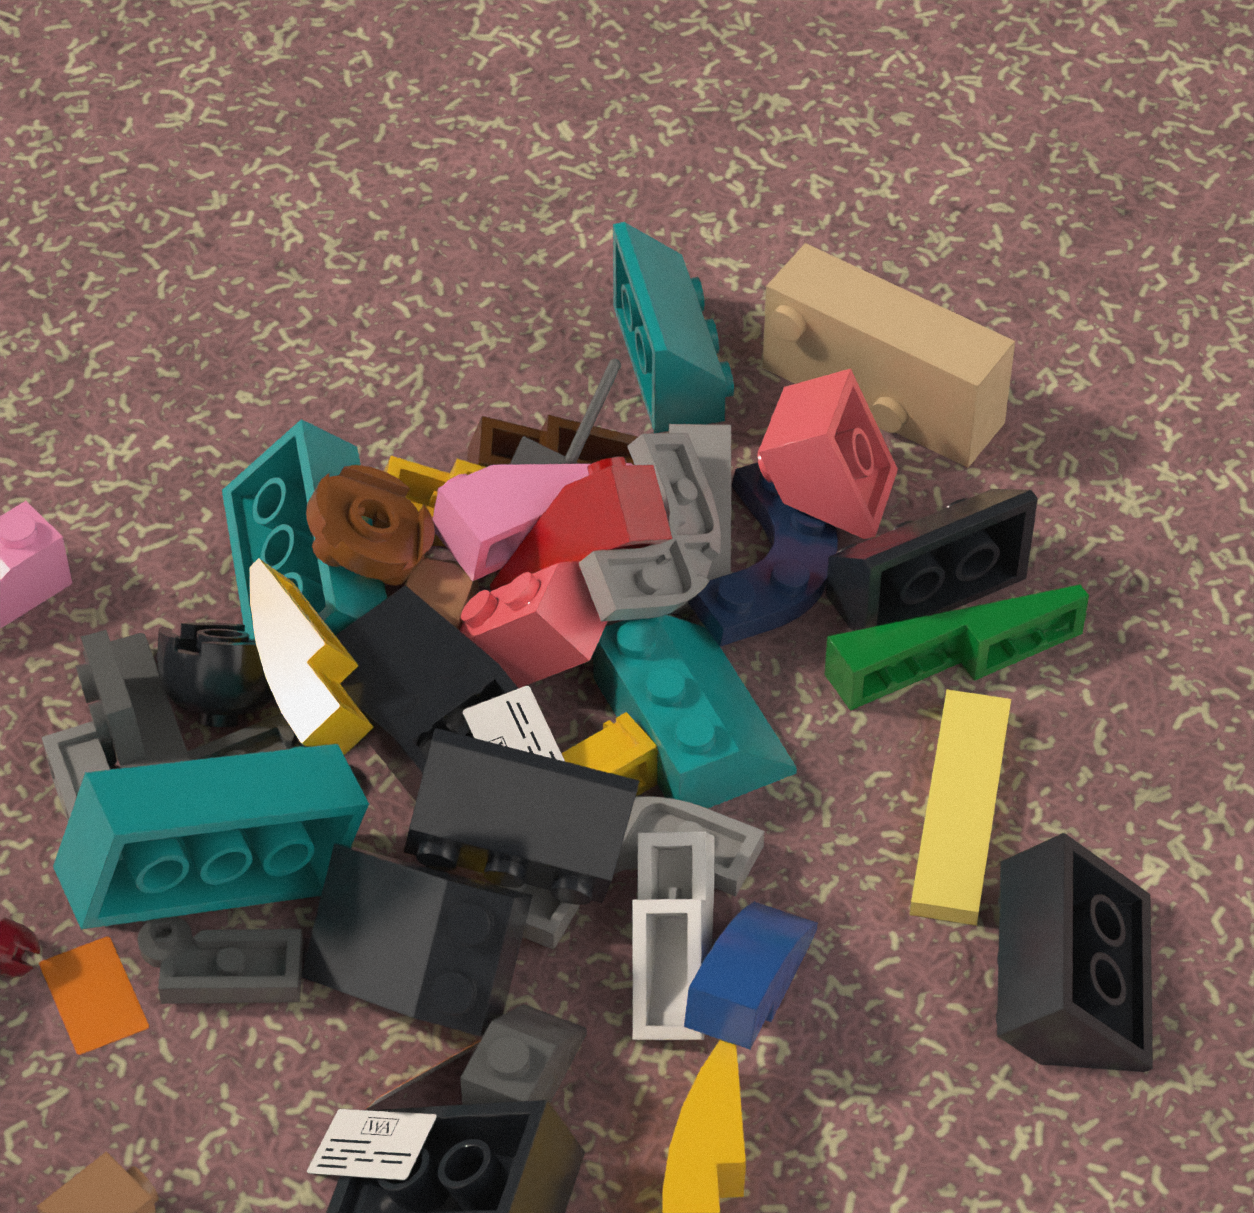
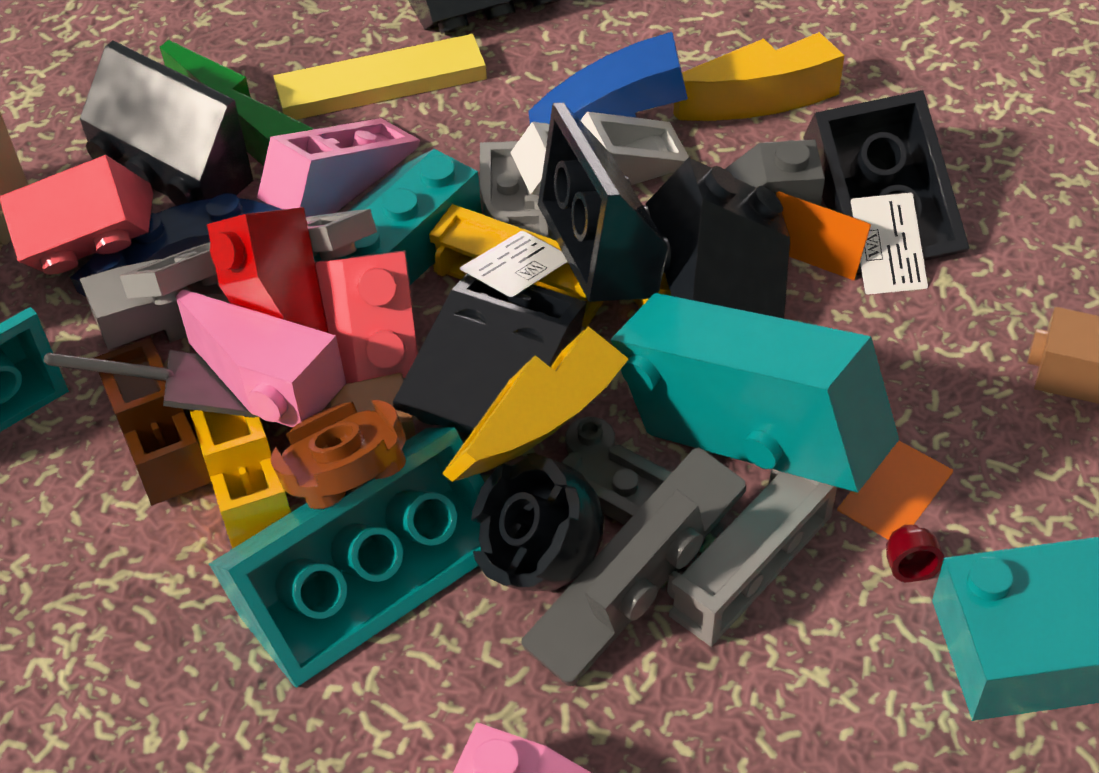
camera: 115 degrees left, 0 degrees up
(816, 701) = (331, 164): none -> bright pink slope

